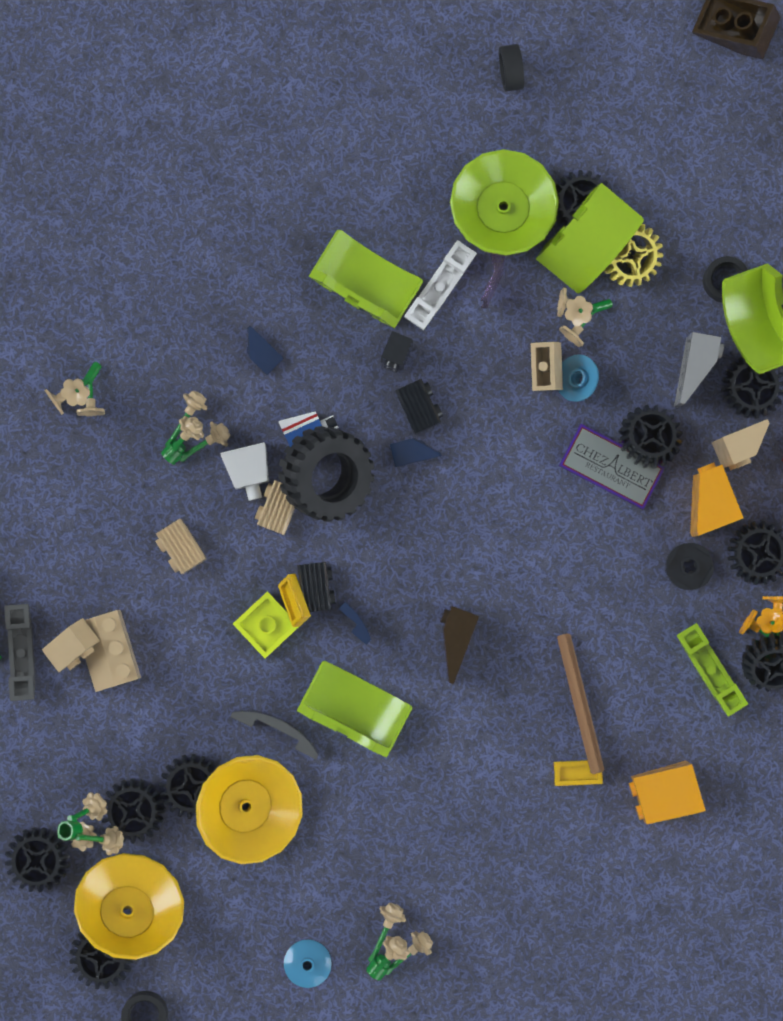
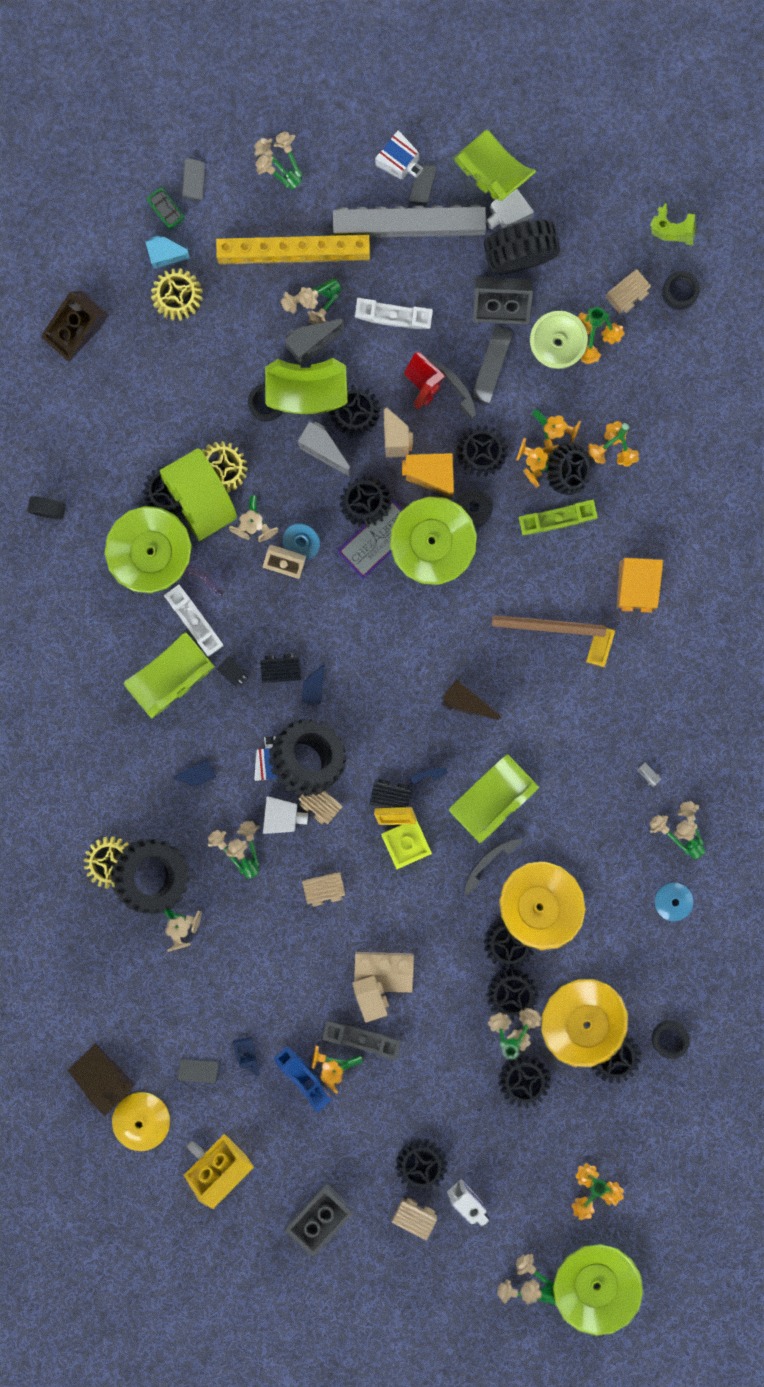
camera: 65 degrees left, 0 degrees up
(114, 289) = (110, 853): none -> light yellow gear
(130, 369) = (125, 876): none -> black tyre
(446, 882) = (649, 774): none -> light grey pin
(638, 556) = (452, 546): none -> lime dish

